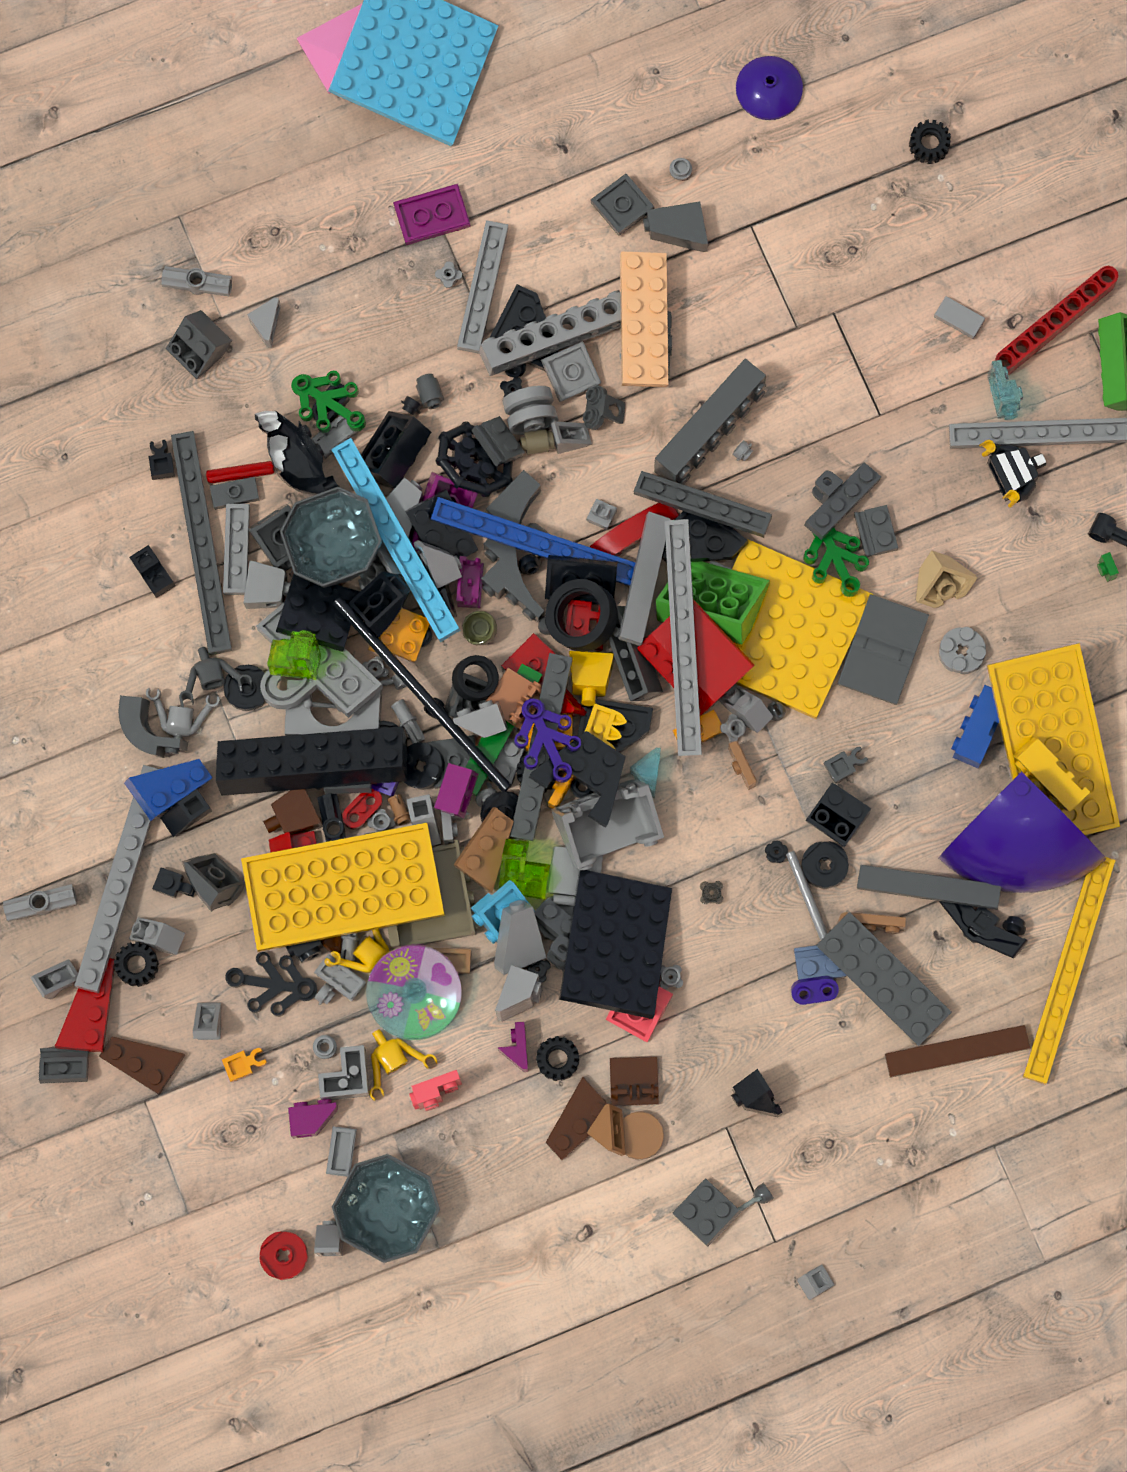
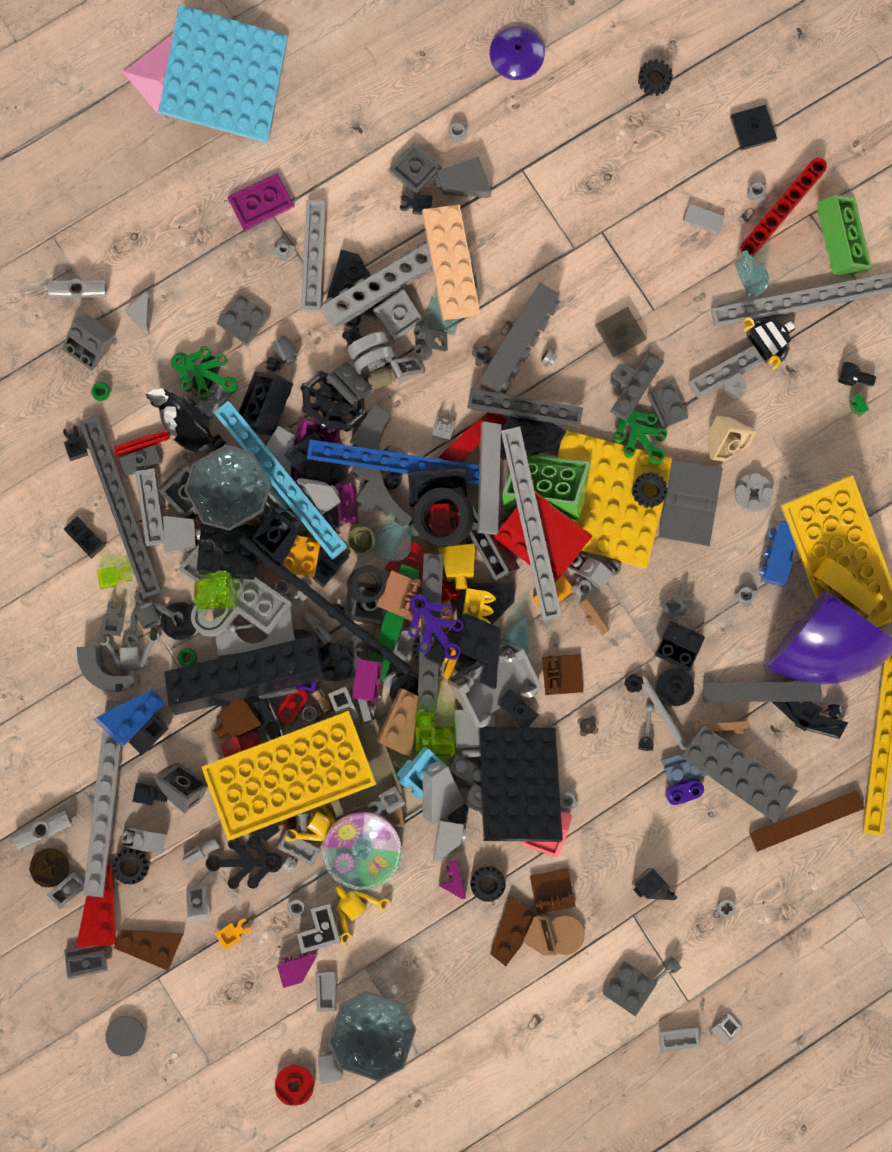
camera: 20 degrees left, 5 degrees up
(40, 949) = (49, 867): none -> dark brown tile
(94, 1162) = (125, 1036): none -> dark grey tile
(167, 675) = (112, 623): none -> dark grey plate
(174, 622) = (110, 577): none -> clear neon green plate
(202, 398) = (96, 387): none -> green plate
(221, 961) = (200, 851): none -> light grey axle
(248, 725) = (187, 651): none -> green plate
(386, 348) = (243, 319): none -> dark grey plate
(427, 1093) = (389, 933): coral plate -> none
(435, 654) = (328, 568): none -> black slope
(457, 939) = (390, 801): none -> light grey plate
(482, 721) = (379, 619): light grey slope -> none
(517, 637) = (393, 542): none -> clear light blue tile
(614, 387) = (434, 319): none -> clear light blue piece
(616, 245) = (417, 204): none -> black plate
(630, 858) = (517, 709): none -> black plate
(658, 432) = (482, 351): none -> dark grey plate
(692, 826) = (562, 674): none -> reddish brown hinge
(756, 1282) = (679, 1038): none -> light grey plate
(778, 924) = (646, 742): none -> hinge
(834, 434) = (620, 332): none -> clear smoke plate
(835, 638) = (649, 501): none -> black tyre
(844, 1144) = (729, 912): none -> light grey bush
(934, 765) = (745, 590): none -> light grey plate
(955, 506) = (727, 375): none -> light grey plate
(1029, 288) = (756, 186): none -> light grey plate
(1038, 219) = (753, 127): none -> black plate

